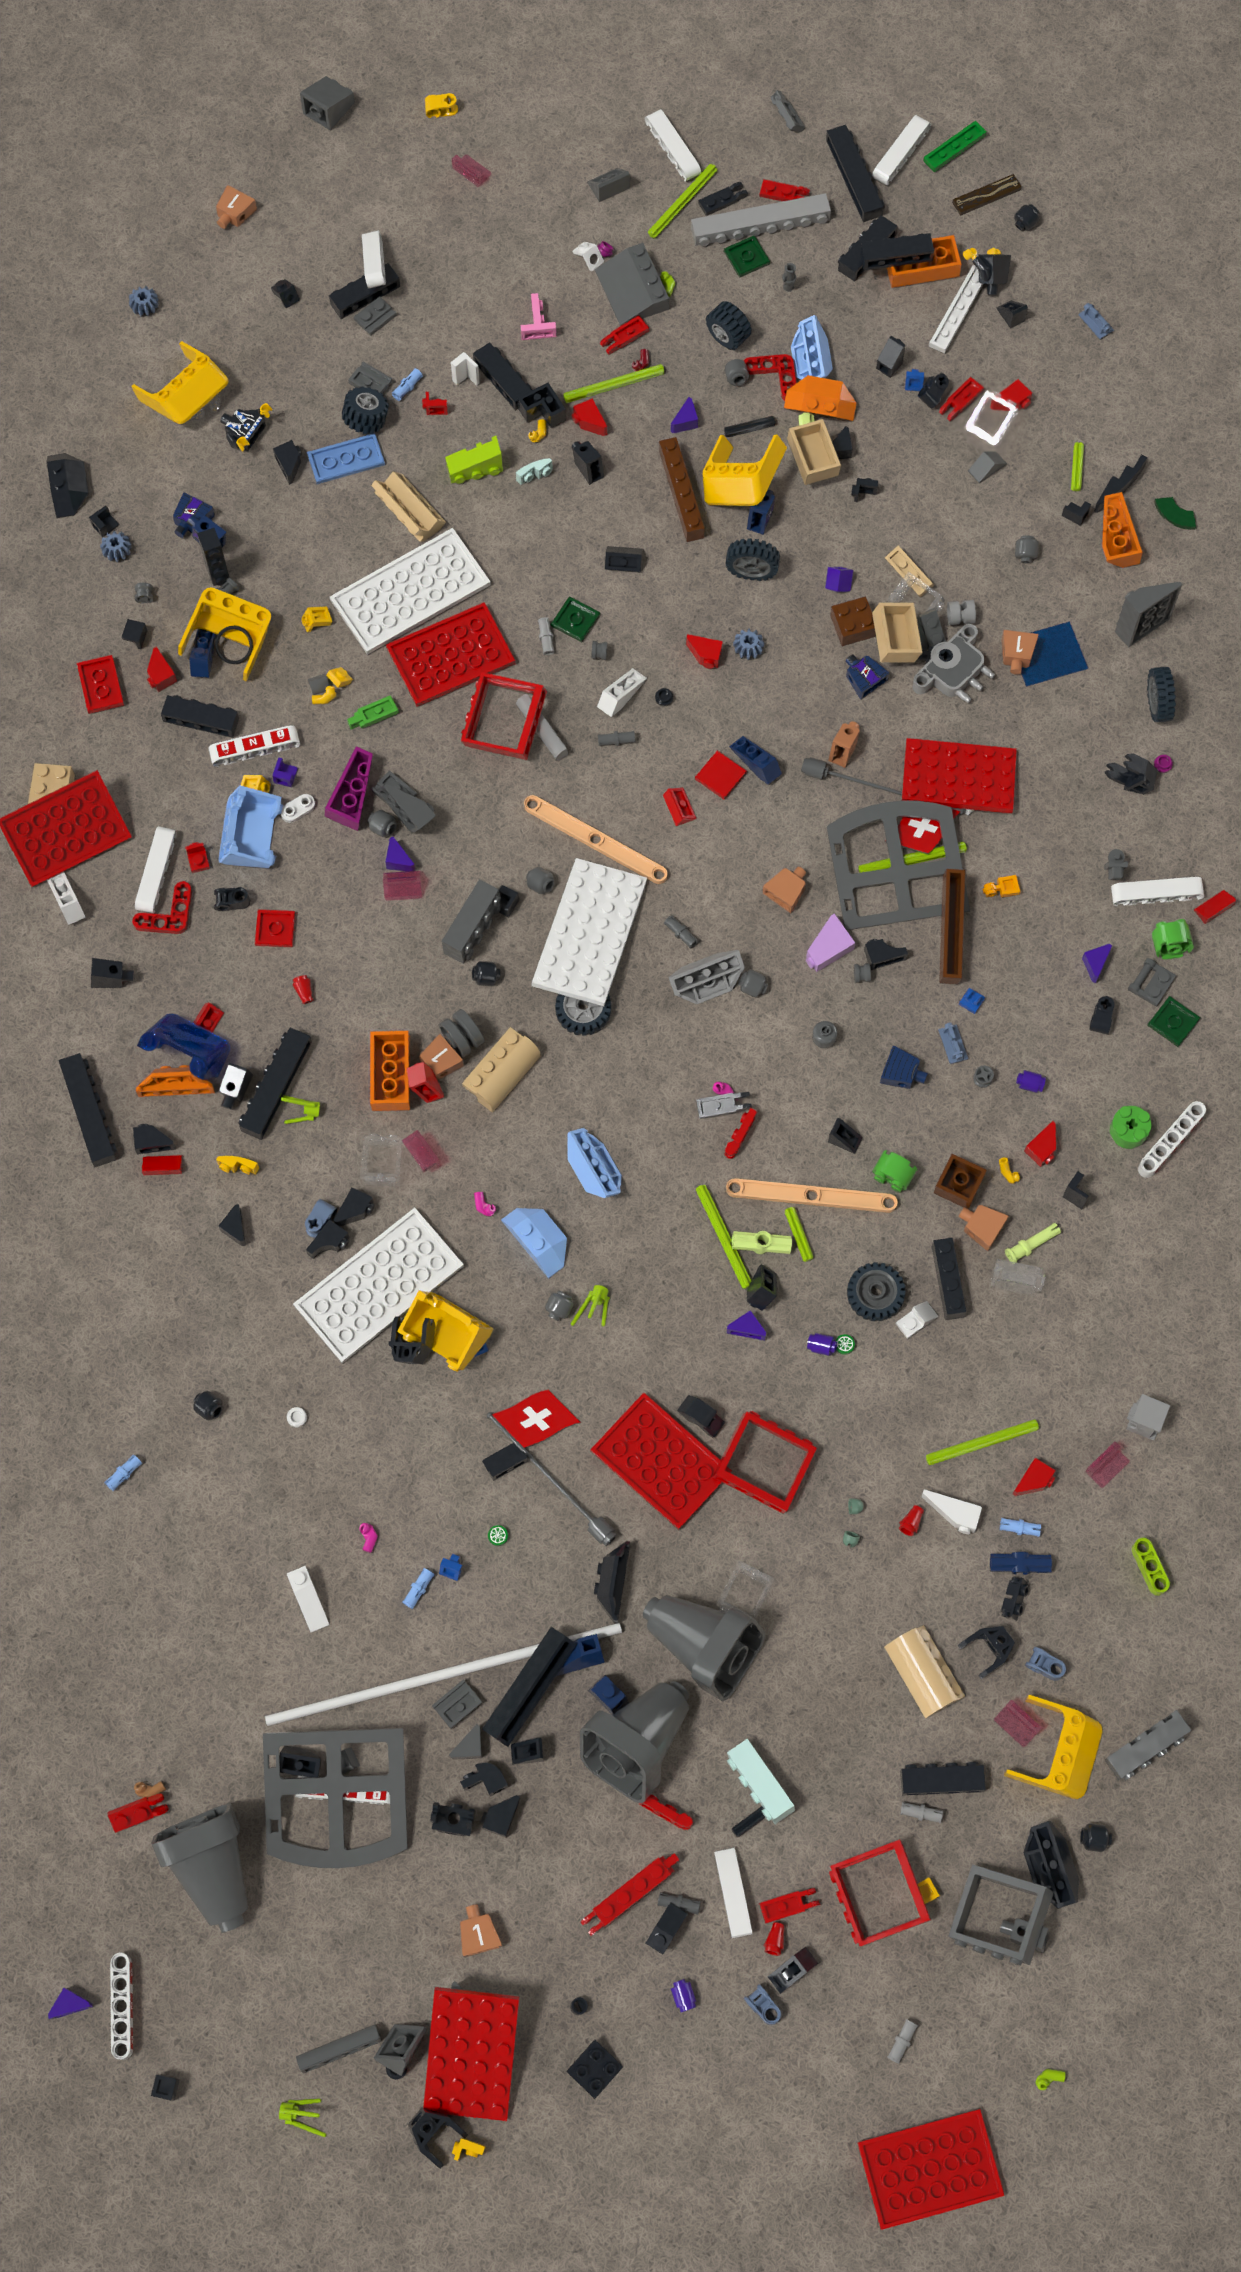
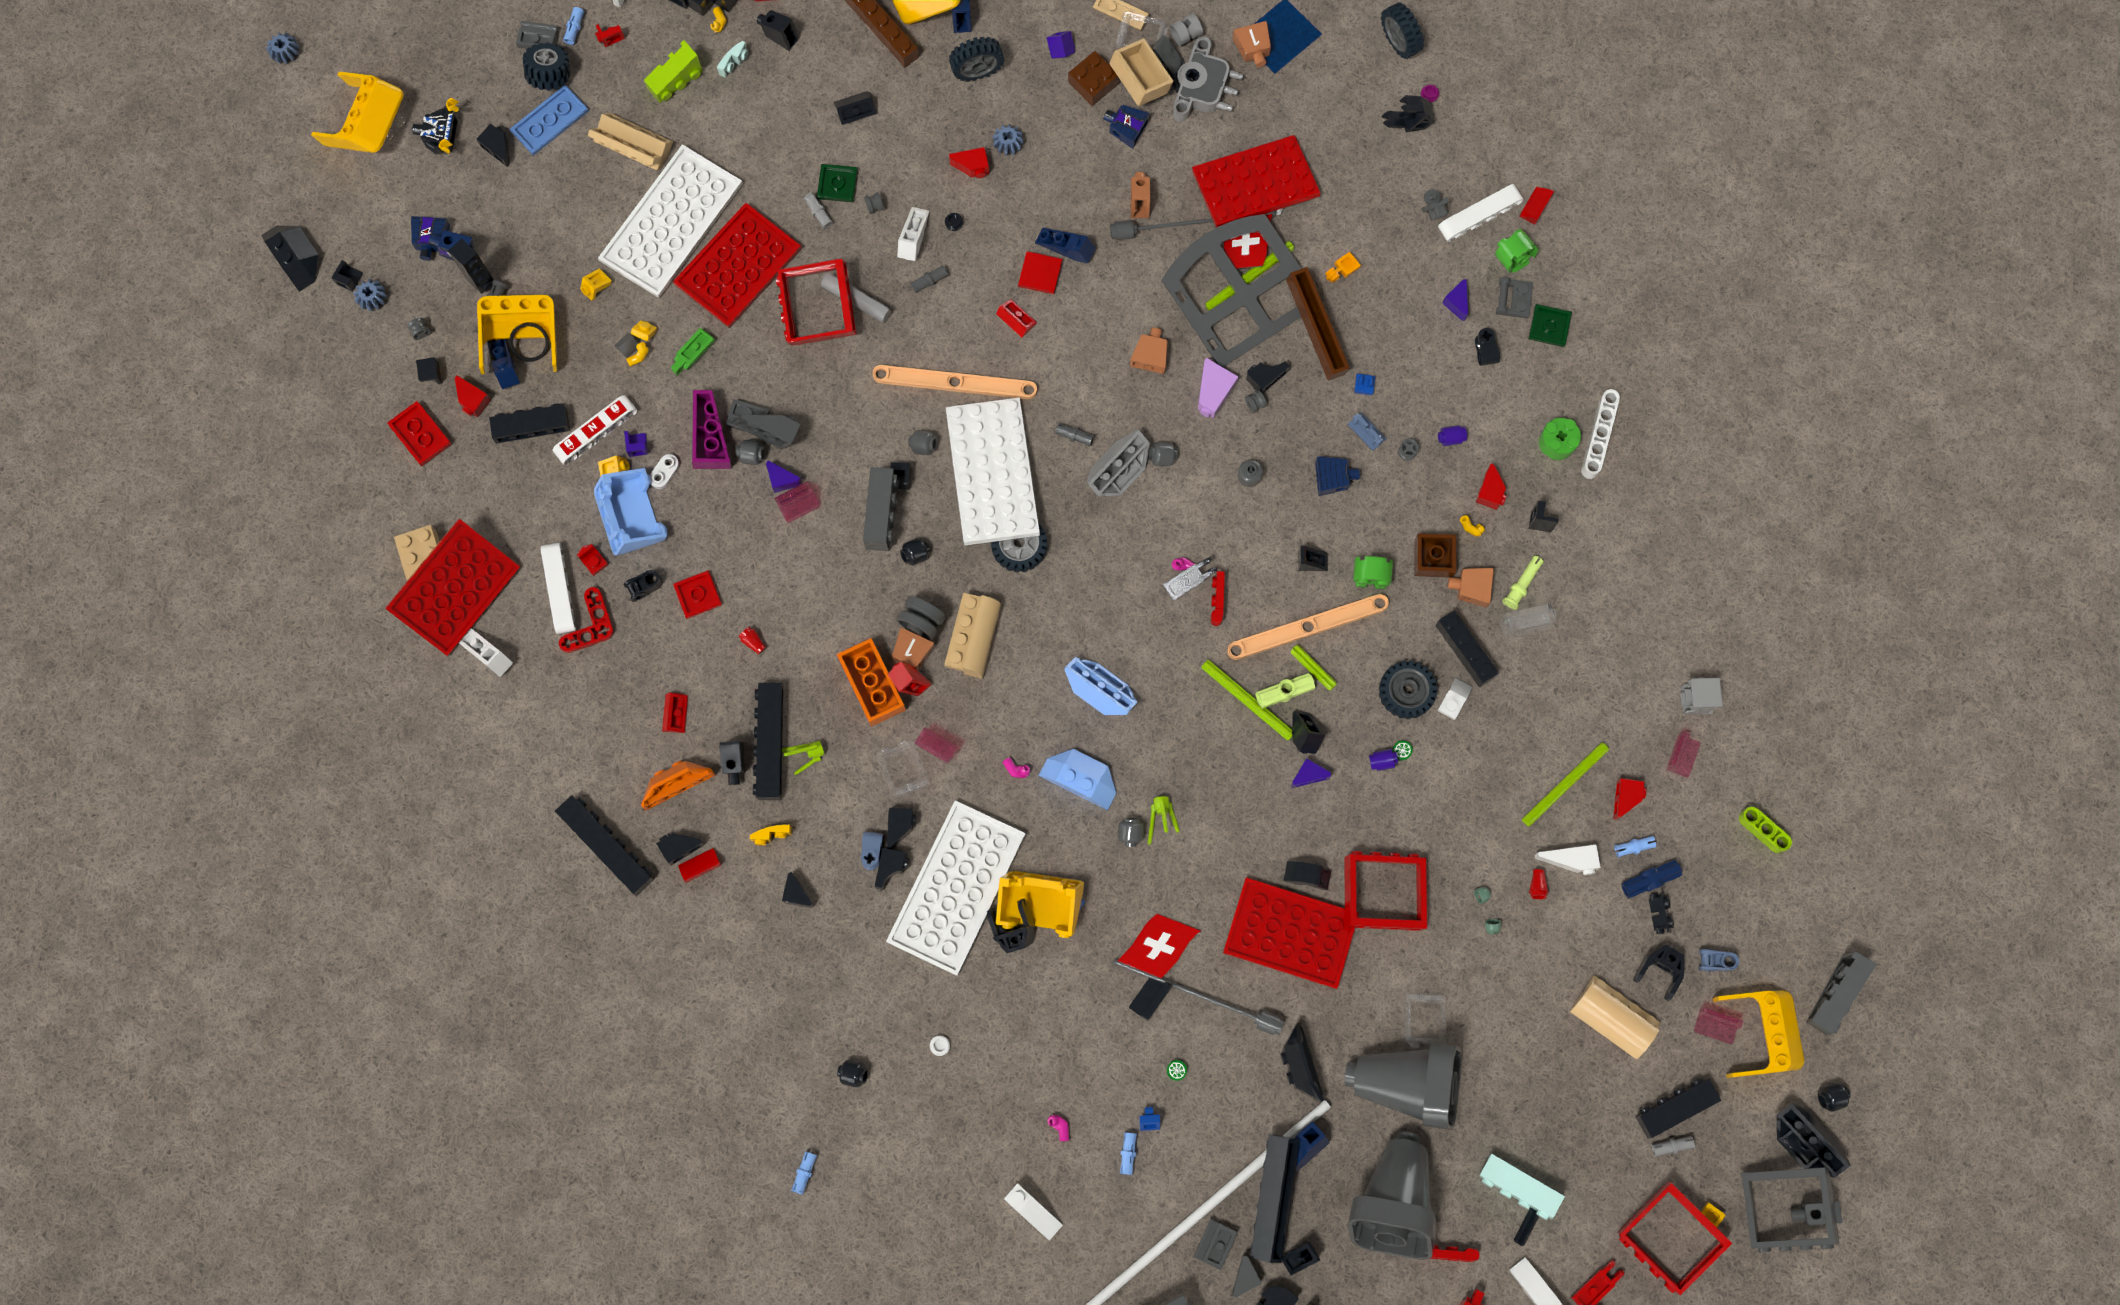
camera: 25 degrees left, 5 degrees up
(109, 973) = (556, 709): black torso -> none
(204, 1047) = (671, 737): clear blue windscreen -> none
(608, 1694) = (1347, 1171): dark blue torso -> none

